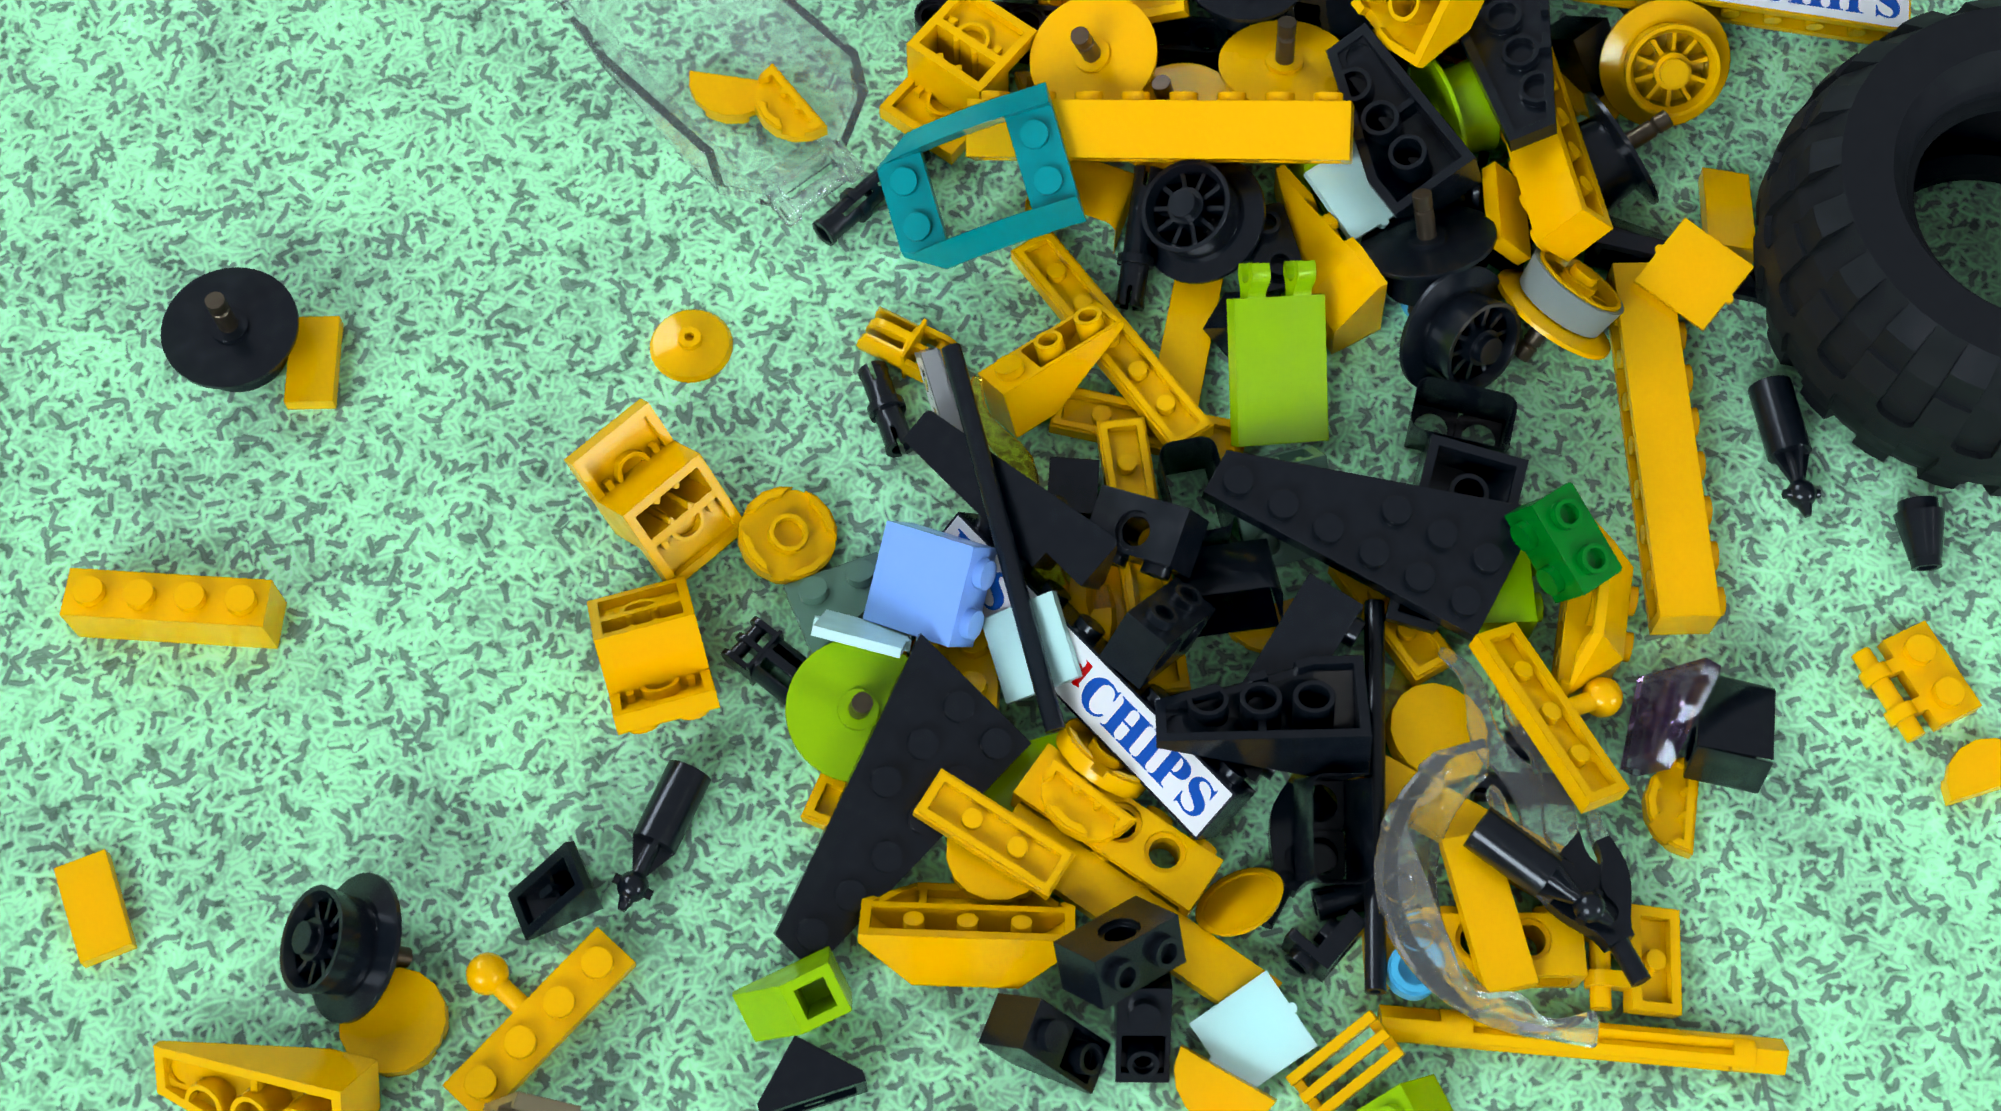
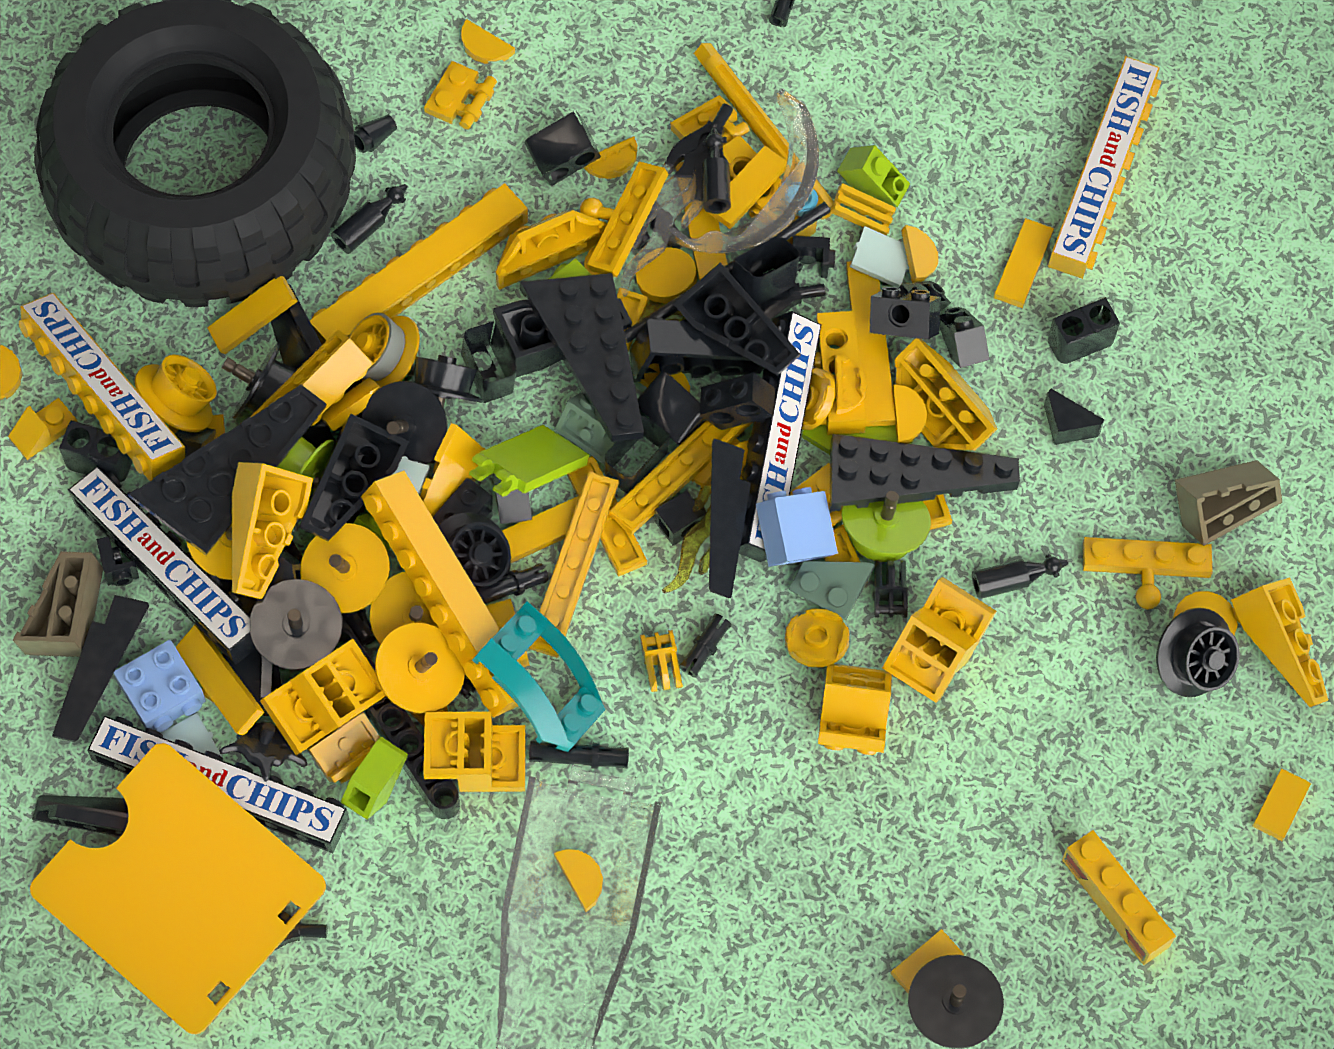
camera: 130 degrees left, 0 degrees up
(554, 893) = (1087, 595): black slope -> none
(691, 345) = (747, 780): yellow piece -> none
(784, 110) = (571, 833): yellow tile -> none
(795, 997) = (1039, 446): lime slope -> none
(860, 633) = (853, 536): light aqua piece -> none
(938, 385) = (682, 612): light grey tile -> none
(994, 834) = (894, 412): yellow tile -> none
(1003, 539) = (747, 504): black piece -> none
(1008, 652) = (788, 461): light aqua piece -> none
(1045, 371) = (616, 572): yellow slope -> none
(1173, 535) = (677, 462): black brick -> none
(1240, 902) = (826, 293): yellow piece -> none
(1563, 544) = (540, 251): green bracket -> none
(1664, 713) = (576, 180): clear purple wing -> none
(1694, 274) = (315, 297): yellow piece -> none

